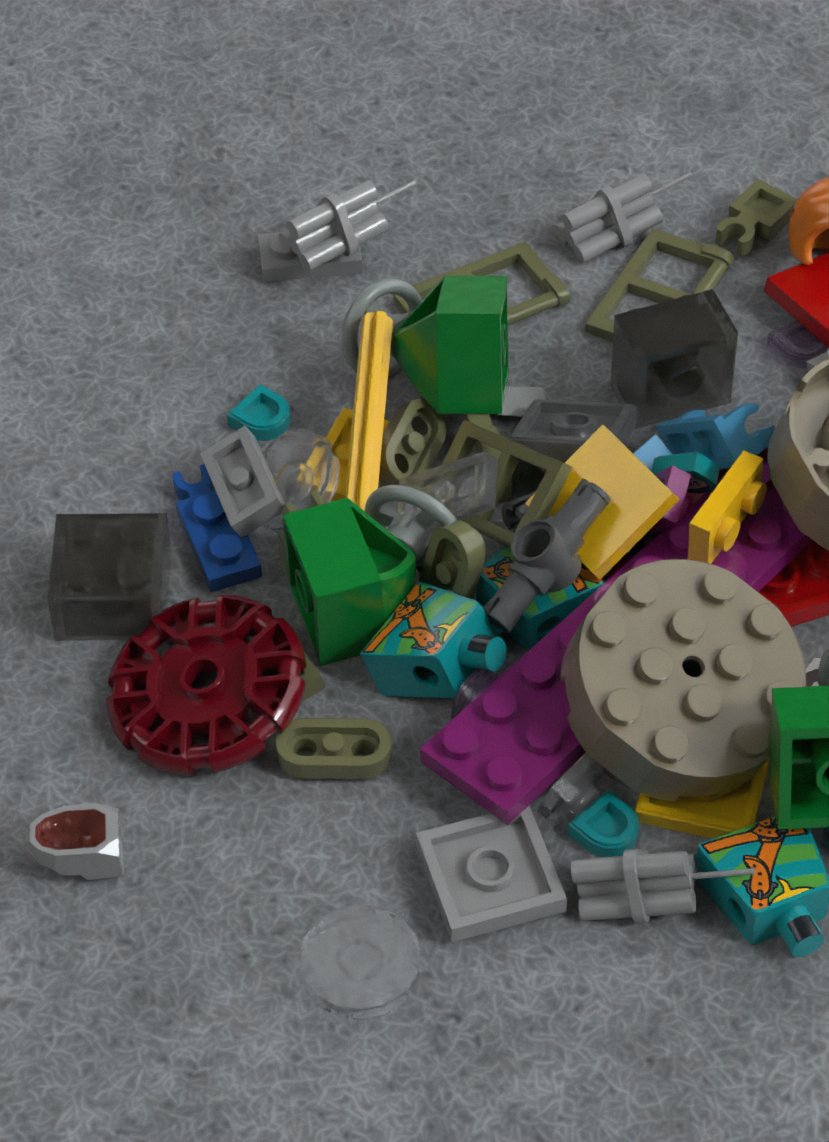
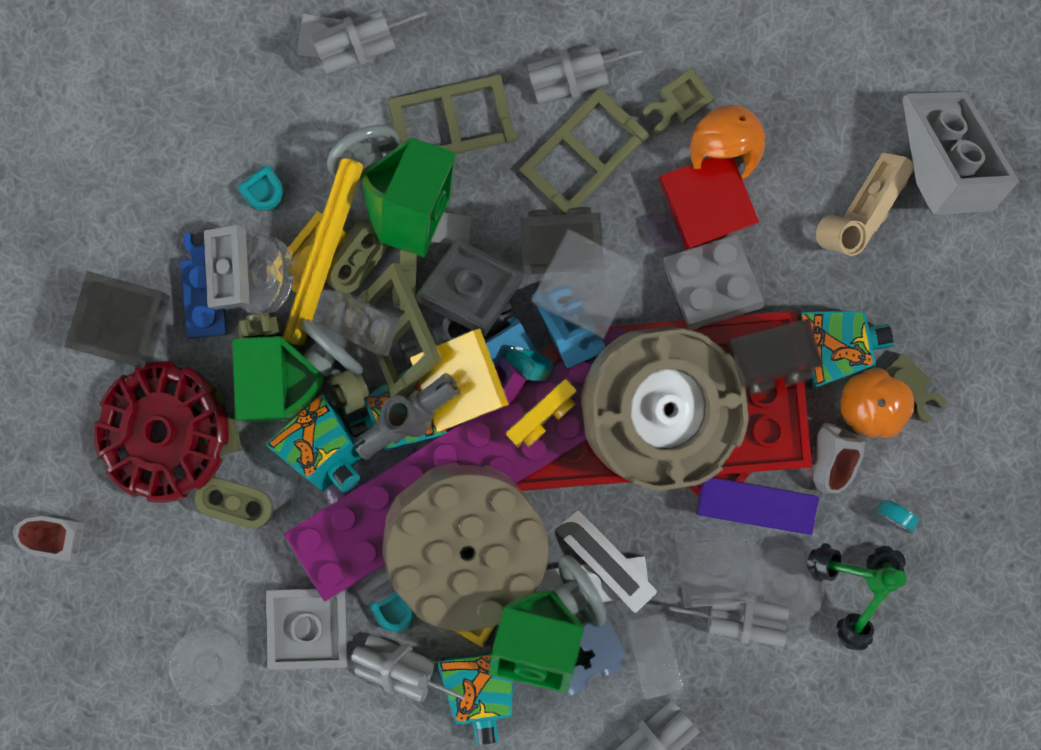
camera: 15 degrees right, 35 degrees up
(726, 354) = (585, 284): none -> clear tile

